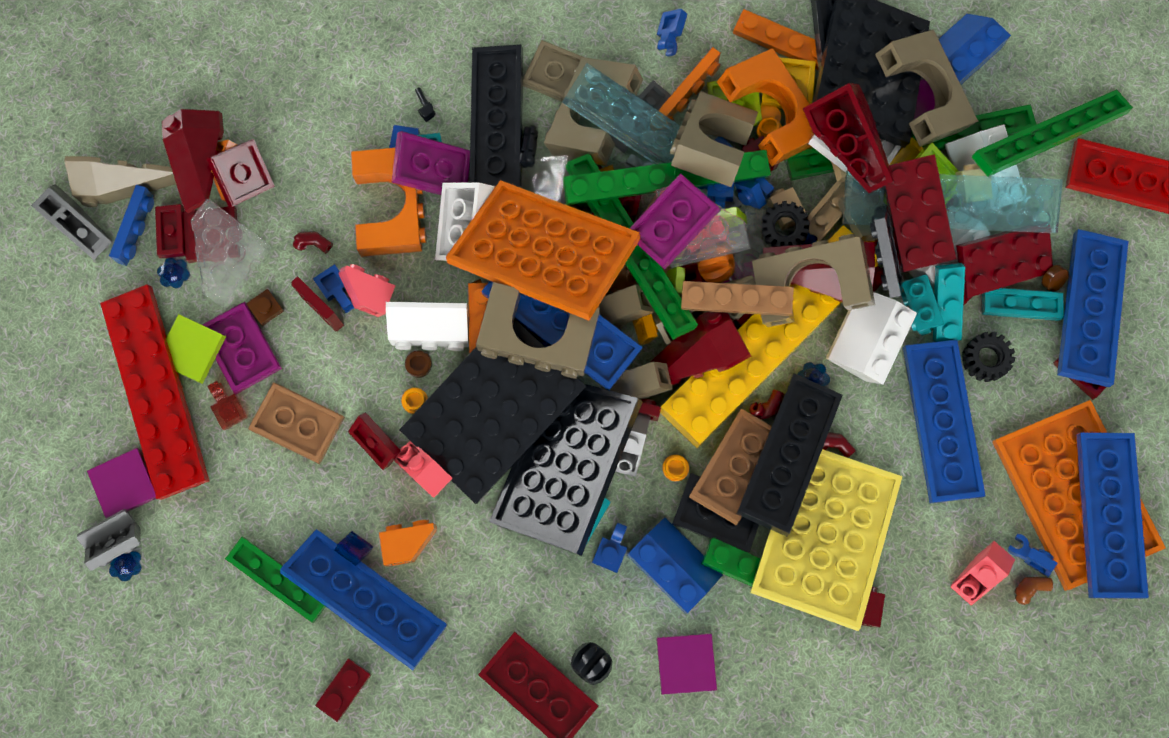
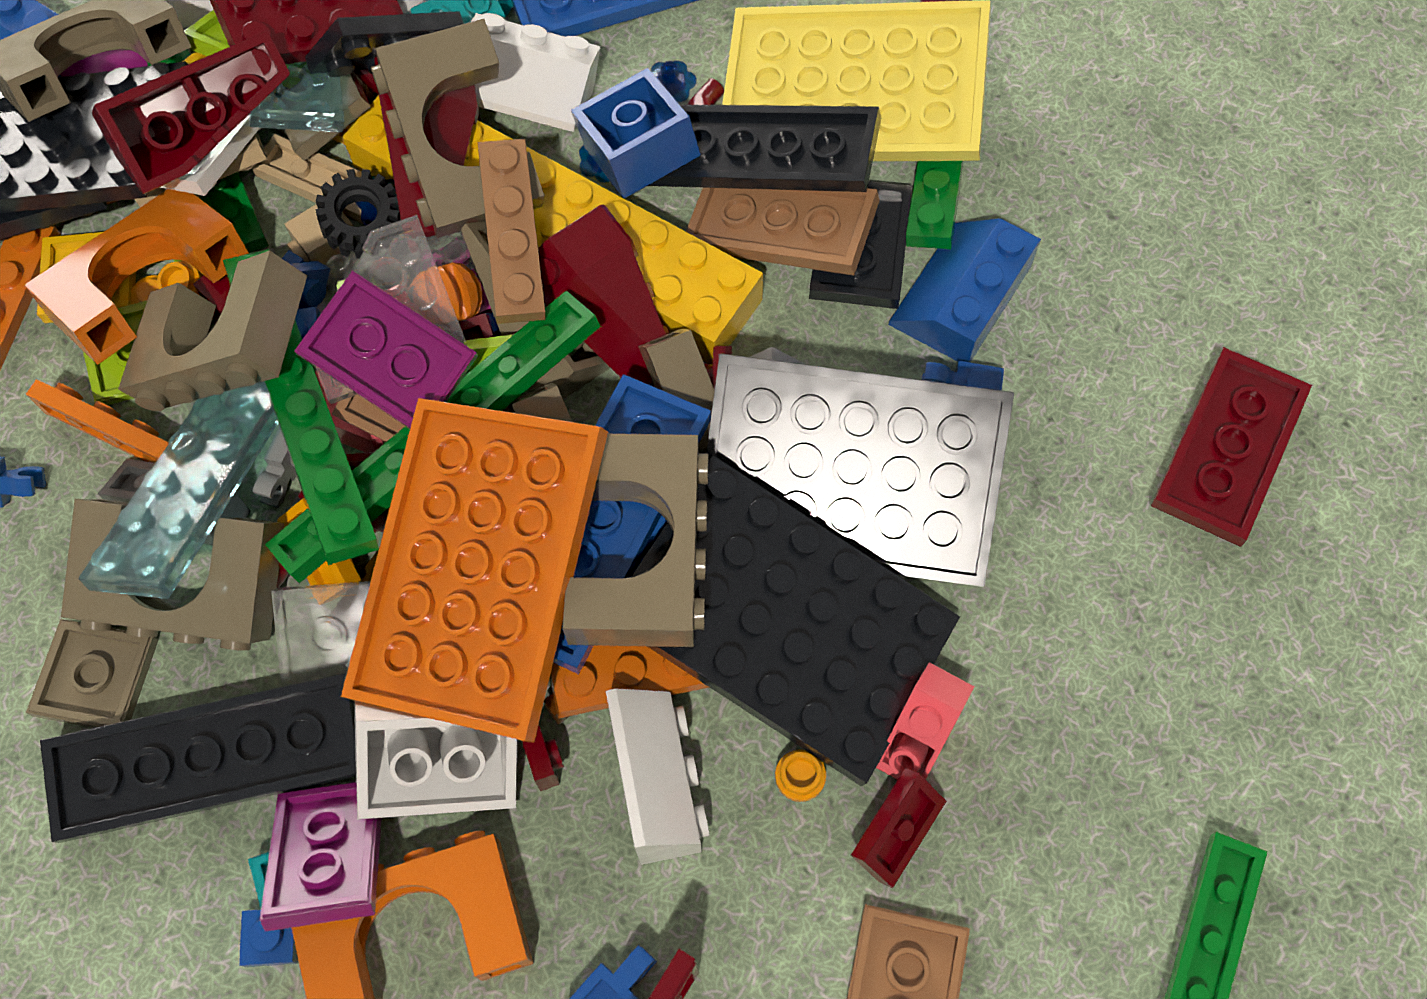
camera: 100 degrees left, 10 degrees down
(343, 690) = (1355, 768): dark red plate -> none
(353, 548) = (1108, 811): clear blue tile -> none
(364, 600) = (1191, 771): blue plate -> none
(366, 291) = (611, 917): coral slope -> none
(405, 544) = (1070, 718): orange slope -> none
(418, 364) = (727, 788): reddish brown tile -> none
(426, 110) = (197, 903): black hand -> none
(453, 276) = (543, 760): none -> dark red plate
(528, 146) = (259, 678): black axle -> none
(591, 663) = (1162, 370): black piece -> none
(645, 329) = (583, 402): light orange plate -> none
(675, 468) = (804, 319): light orange plate -> none
(686, 664) = (1108, 246): magenta tile -> none
(769, 408) = (669, 205): dark red arm -> none
(806, 388) = (636, 132): none -> blue brick
(857, 431) = (675, 78): none -> clear blue plant

